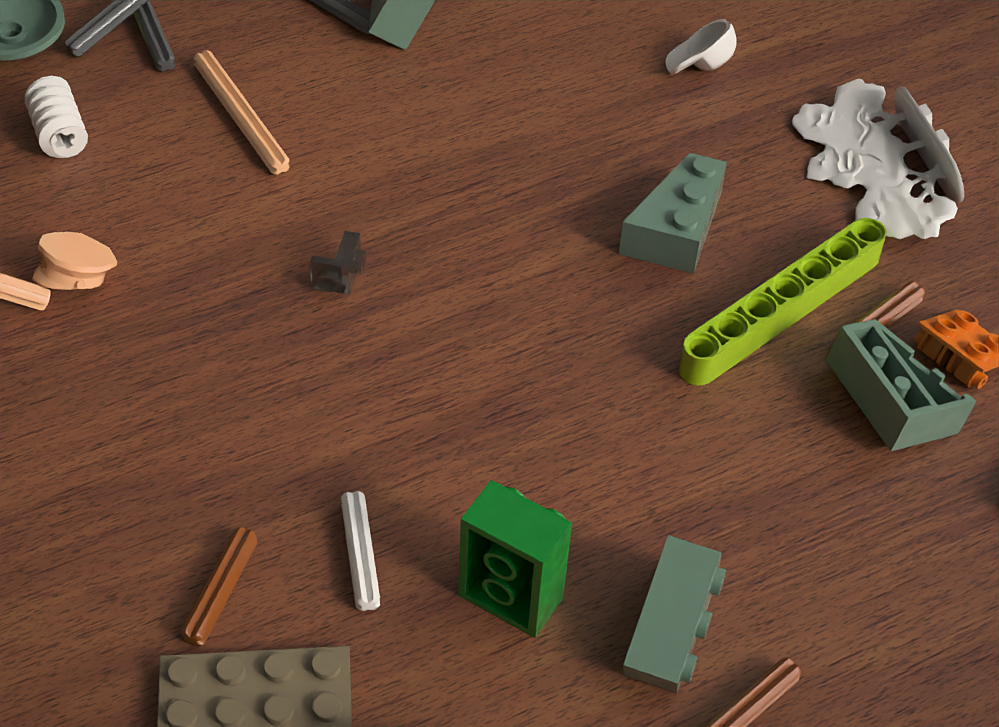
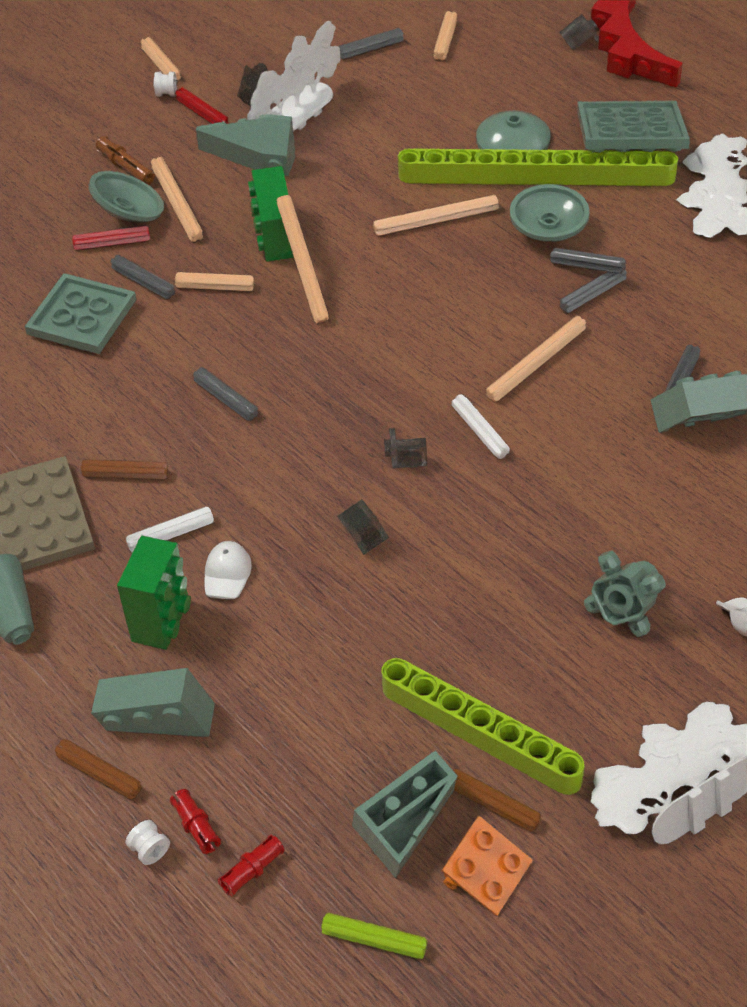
camera: 80 degrees right, 0 degrees up
(55, 117) = (476, 266): white piece -> none
(72, 261) = (349, 316): light nougat hat -> none
(130, 436) = (225, 394): none -> dark grey axle
(327, 189) = (480, 426): none -> white axle
(442, 501) = (227, 570): none -> white cap
(457, 330) = (362, 526): none -> clear smoke brick
(653, 122) = (625, 592): none -> sand green piece
(676, 215) = (544, 636): sand green wedge -> none
(855, 607) = (195, 821): none -> red pin
(881, 662) = (147, 842): none -> white wheel
(930, 560) = (251, 865): none -> red pin

